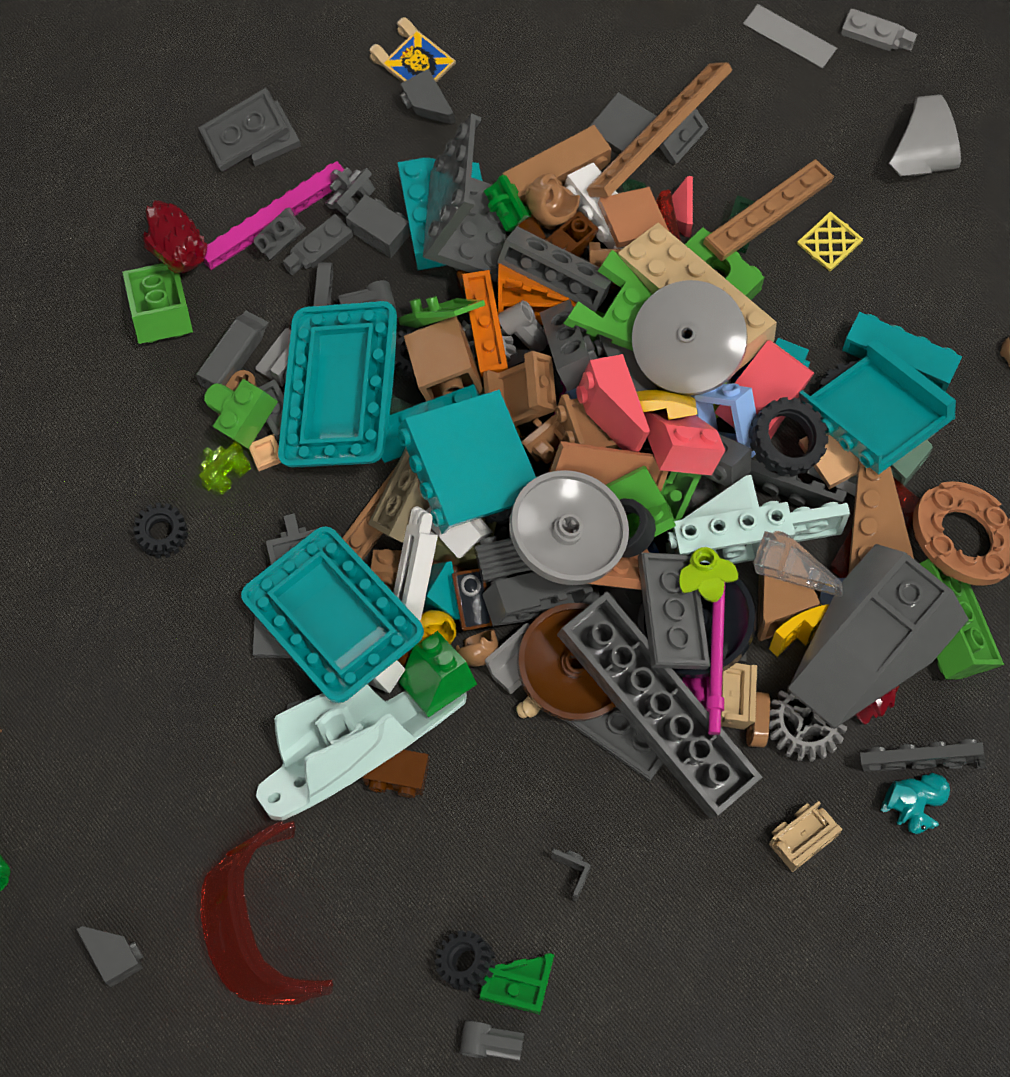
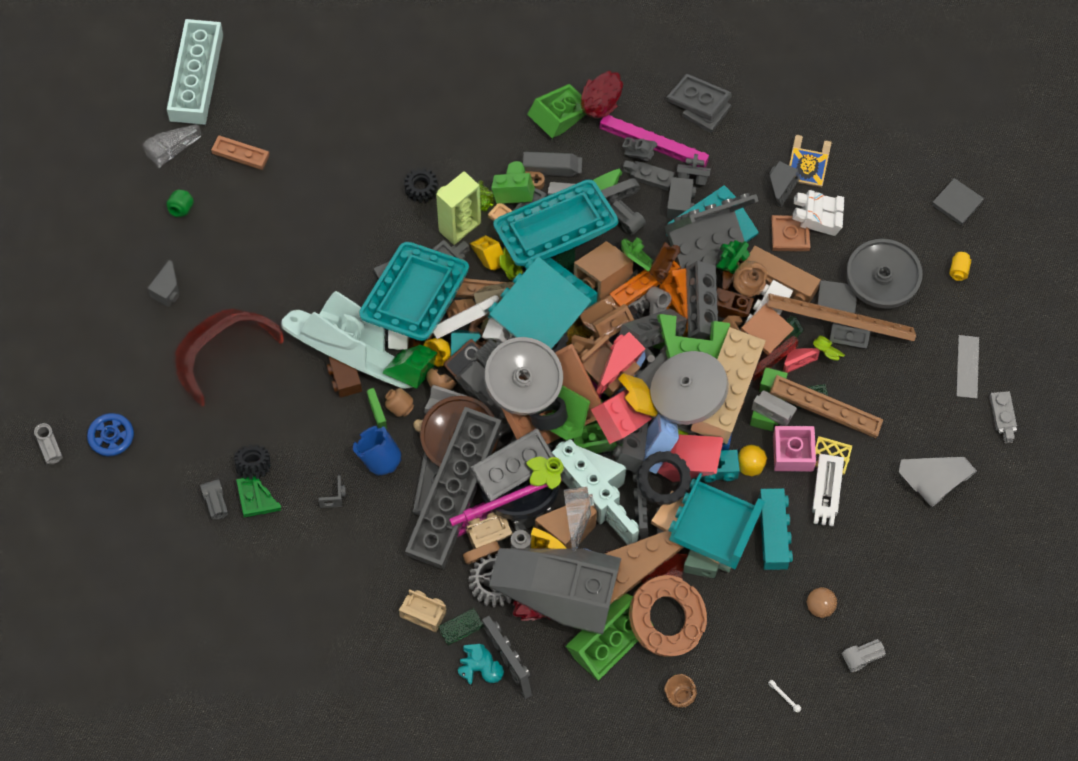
camera: 60 degrees right, 5 degrees down
(243, 491) = (458, 207): none -> yellowish green brick
(298, 297) = (608, 179): none -> bright green slope
(317, 493) = (488, 252): none -> yellow slope
(357, 475) = (509, 266): none -> lime plate
(473, 753) = (376, 408): none -> bright green tile
(482, 718) = (399, 402): none -> medium nougat head
(483, 288) = (664, 261): none -> reddish brown hinge
(497, 78) = (819, 212): none -> white hips
(502, 129) = (788, 234): none -> nougat tile
(545, 779) = (378, 451): none -> blue cylinder
(623, 53) = (884, 273): none -> dark grey dish
(681, 169) = (824, 345): none -> lime plate
(748, 264) = (773, 408): none -> light grey panel
(771, 670) = (520, 539): none -> light grey brick
(794, 328) = (751, 460): none -> yellow hair
(808, 273) = (794, 448): none -> bright pink brick
(848, 798) = (460, 626): none -> clear green plate
(870, 260) = (827, 484): none -> white hinge

